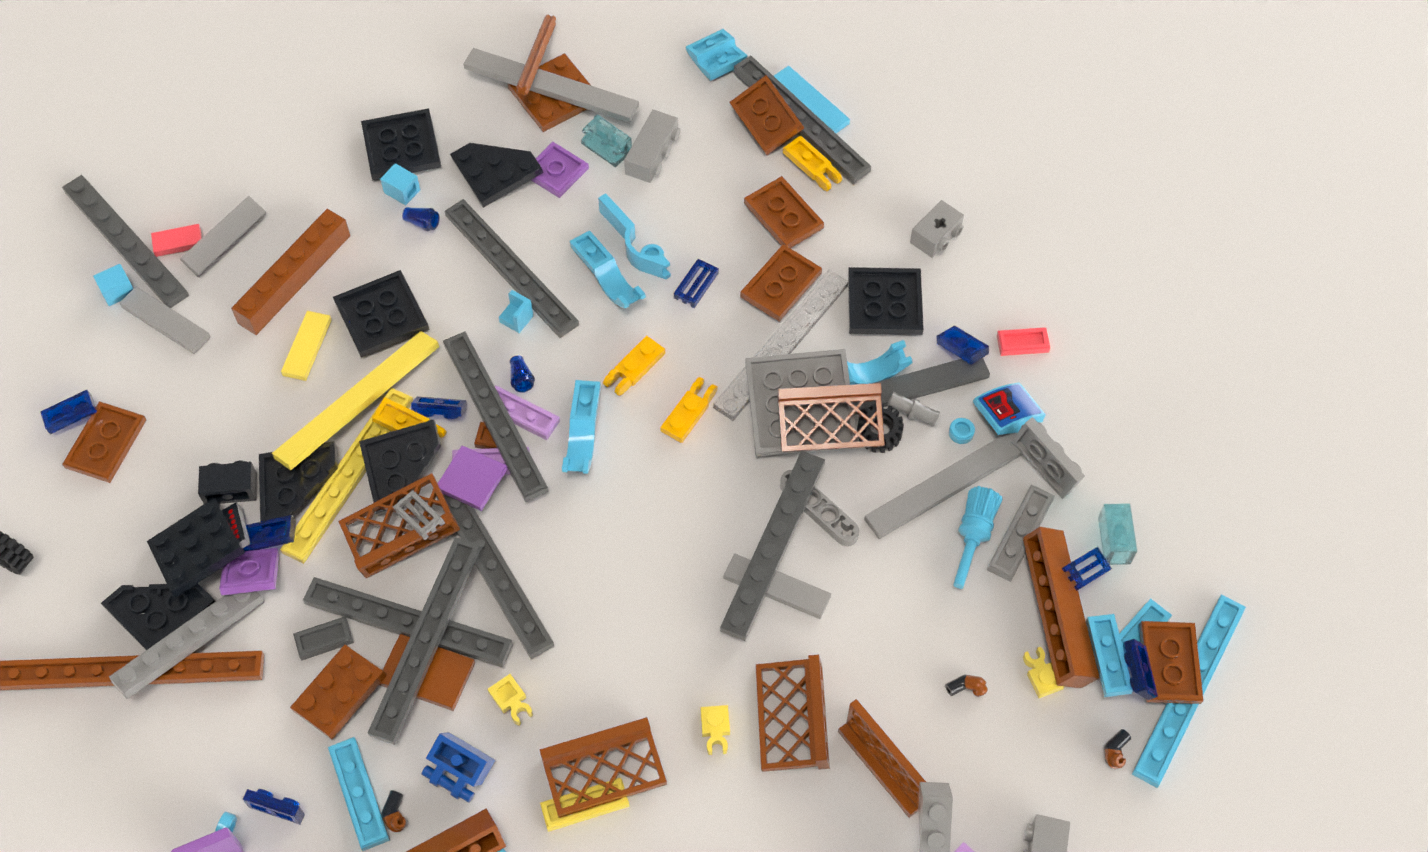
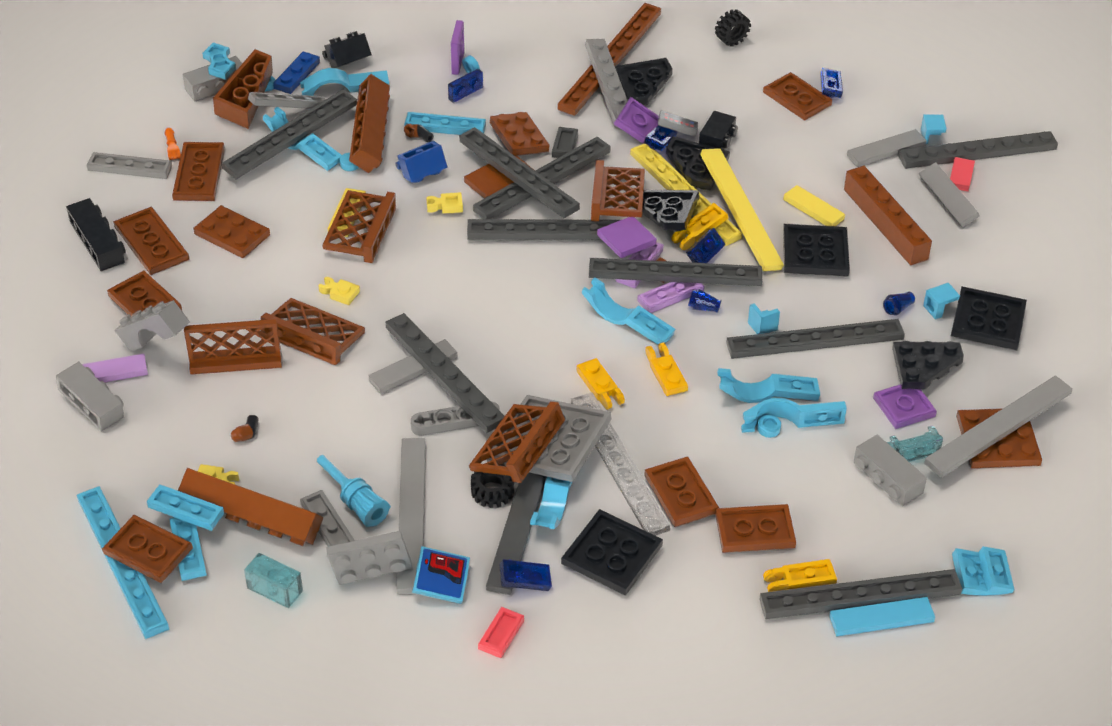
camera: 120 degrees right, 15 degrees down
(195, 547) = (674, 101): black plate -> none
(429, 526) = (610, 190): light grey tile -> none
(536, 55) = (1041, 425): axle -> none
(687, 298) = (717, 442): clear blue tile -> none
(766, 115) = (875, 562): dark orange plate -> none
(913, 408) = (491, 512): light grey pin -> none
(937, 229) = (661, 627): light grey brick -> none
(961, 430) = (450, 541): medium azure tile -> none
(1076, 575) = (263, 537): clear blue tile -> none
(1113, 750) = (122, 485): arm -> none
(1139, 664) = (155, 512): clear blue plate -> none

